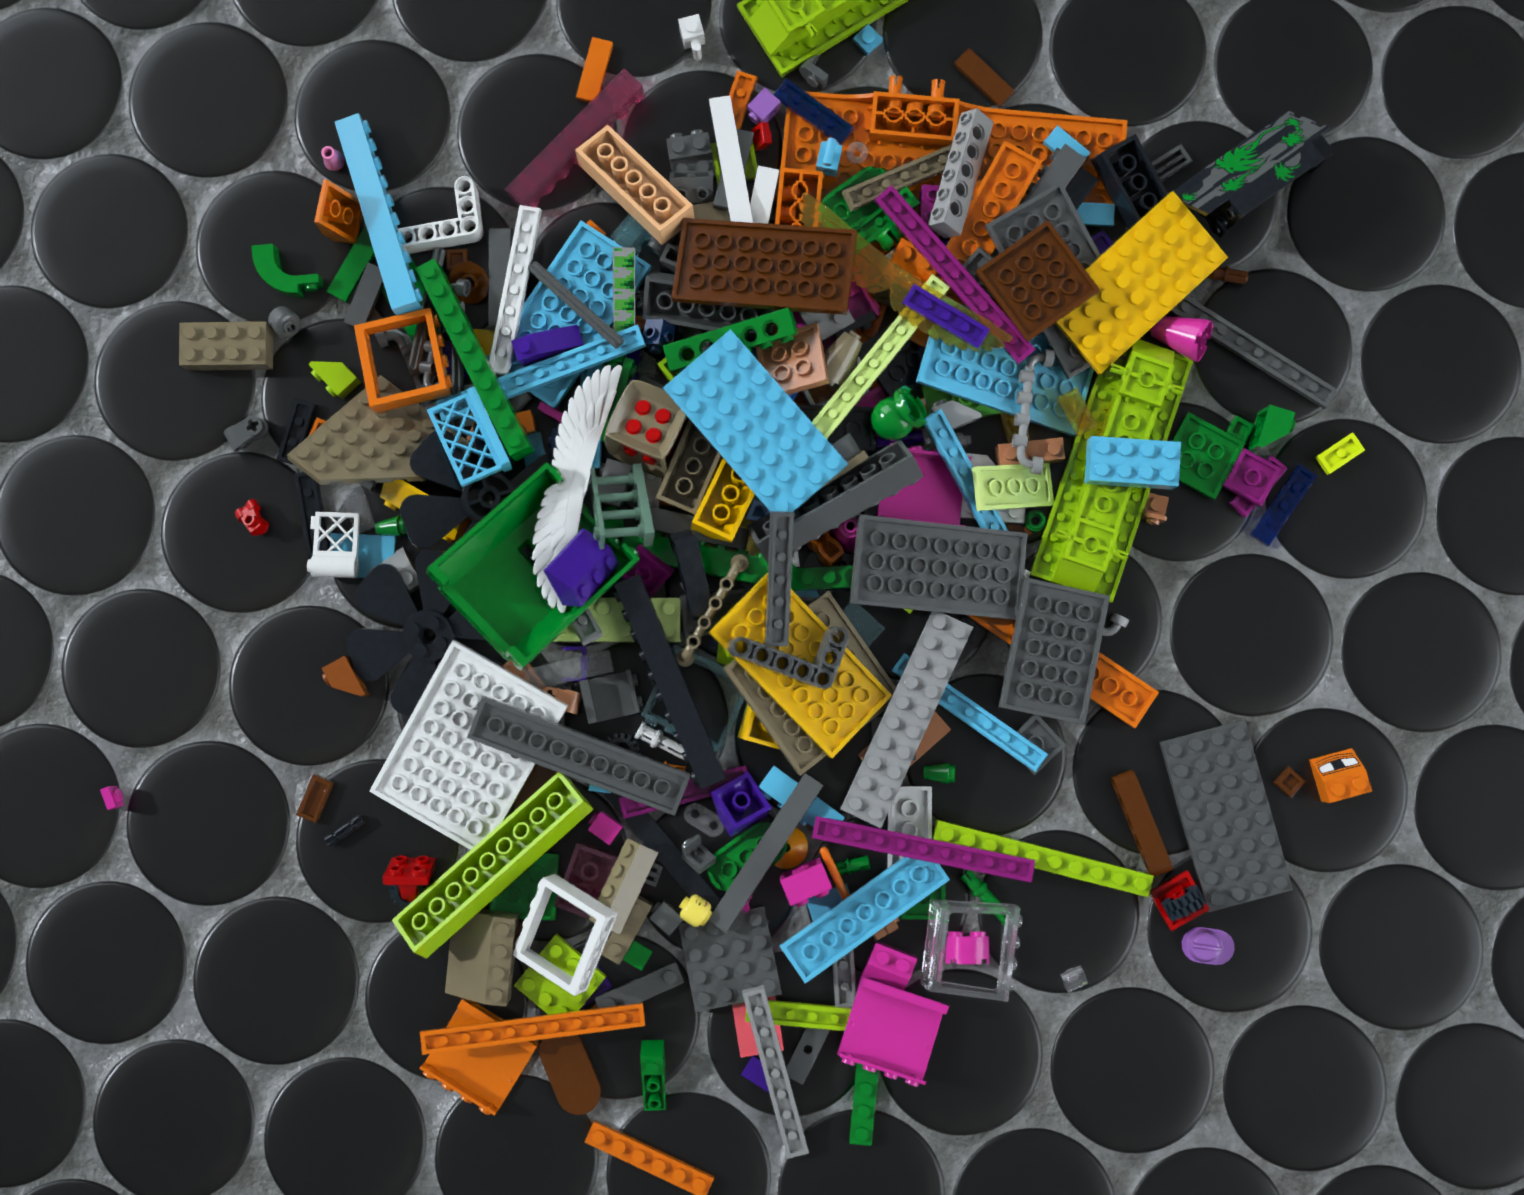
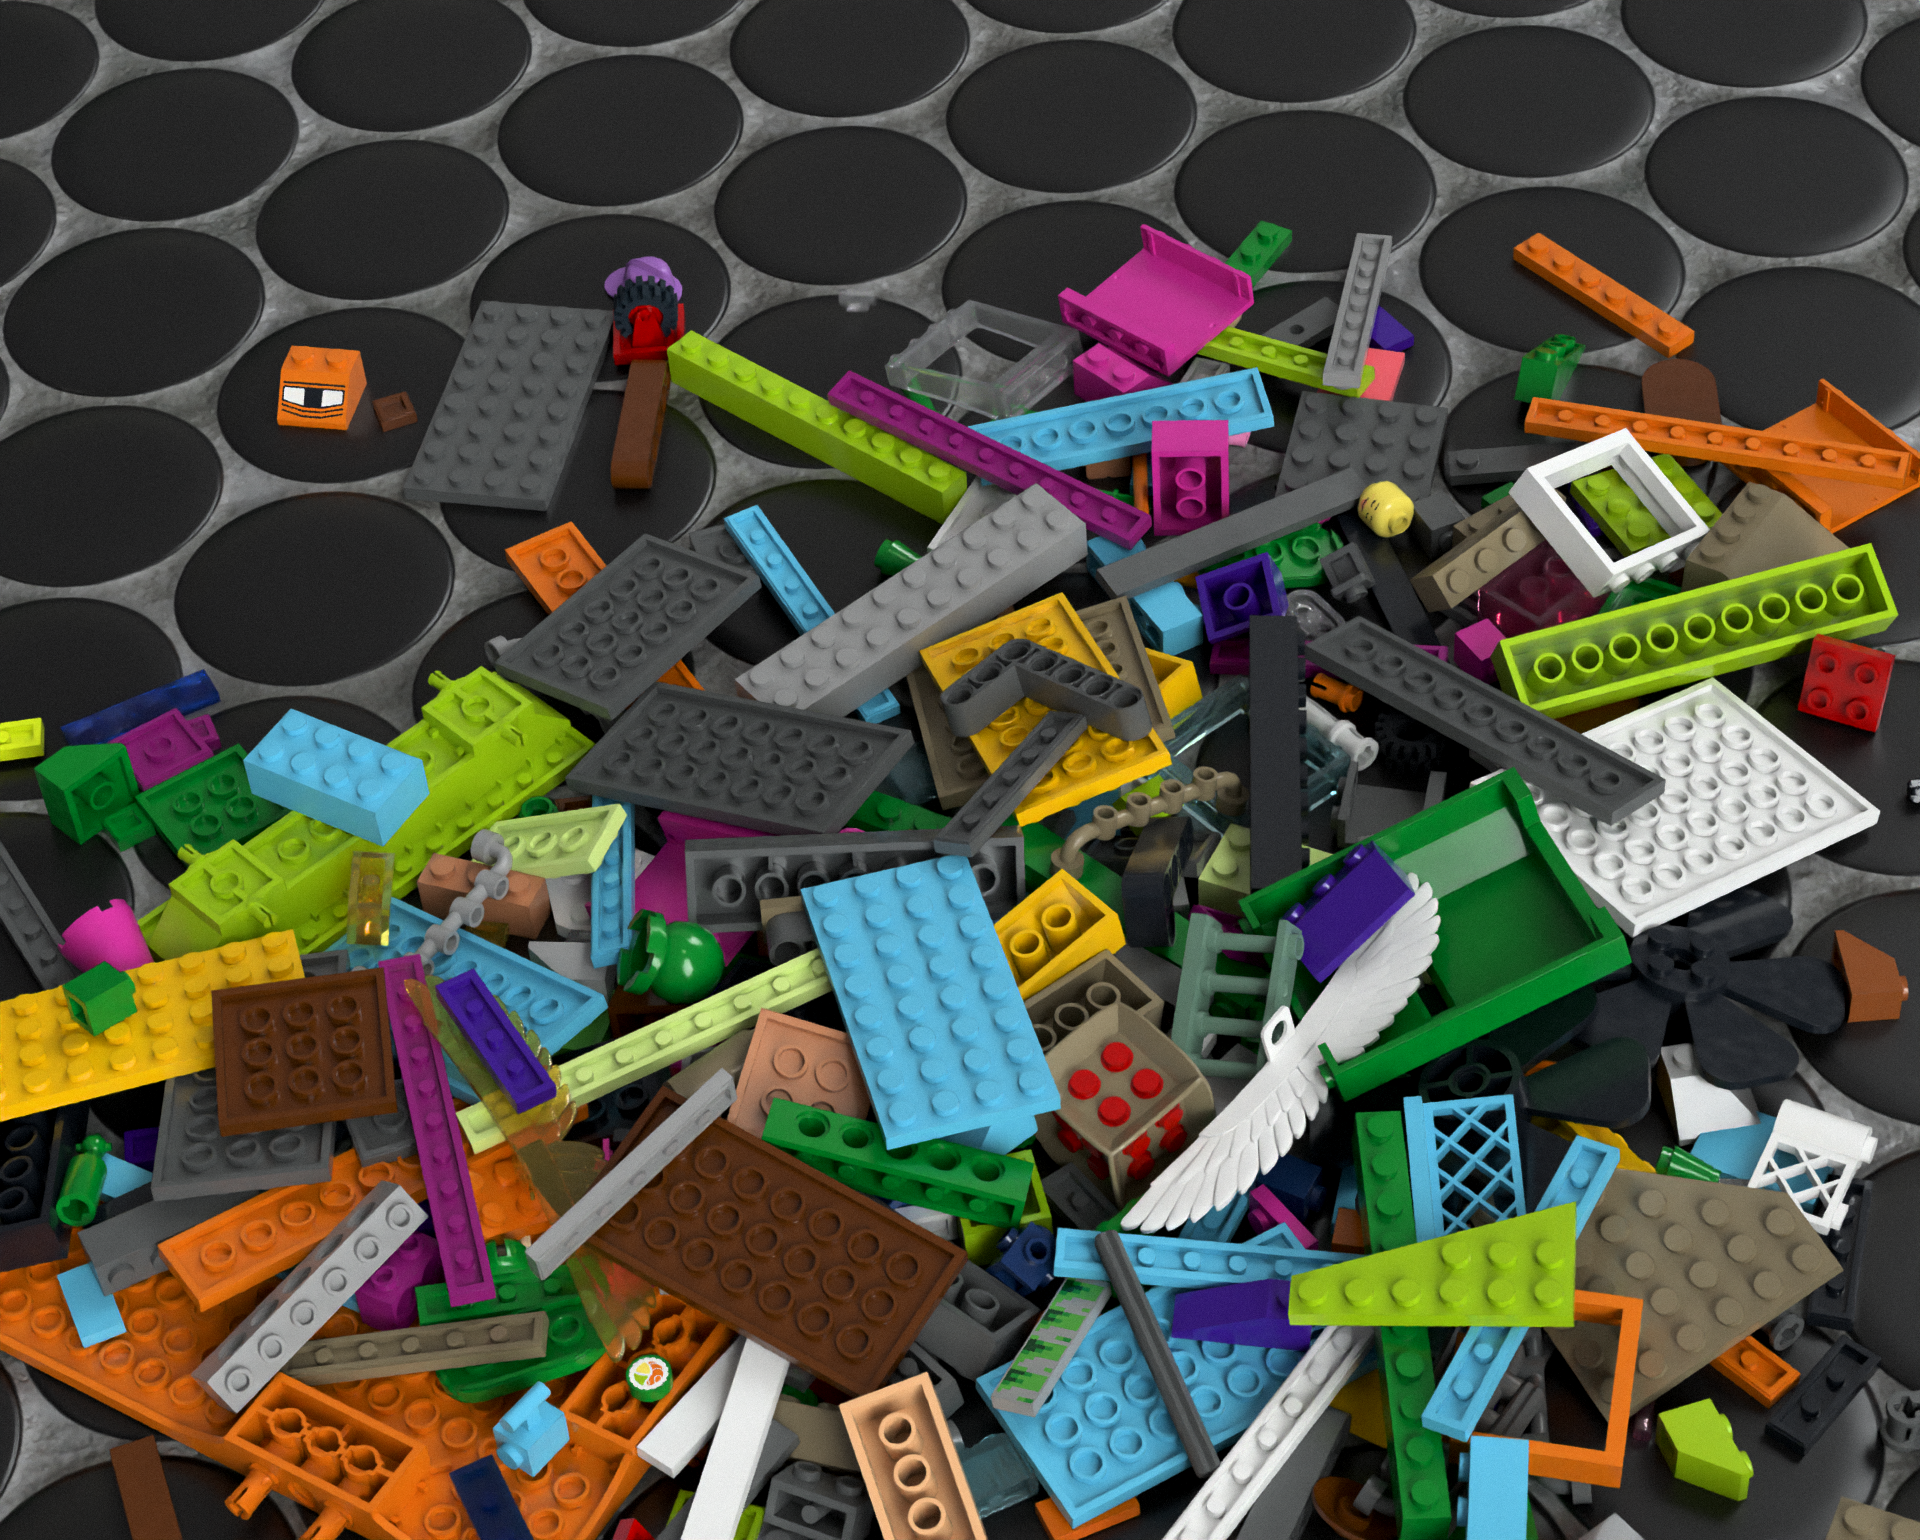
camera: 155 degrees left, 40 degrees down
(419, 382) = (1489, 1350): none -> medium azure plate
(440, 370) = (1482, 1276): none -> lime wing
(789, 201) = (649, 1378): none -> tile
(833, 257) = (631, 1174): none -> light grey tile
(857, 146) = (469, 1422): clear plate -> none
(967, 948) = (989, 349): dark pink brick -> none
(1106, 195) = (83, 1182): none -> green wheel
(1156, 274) = (100, 998): none -> green brick

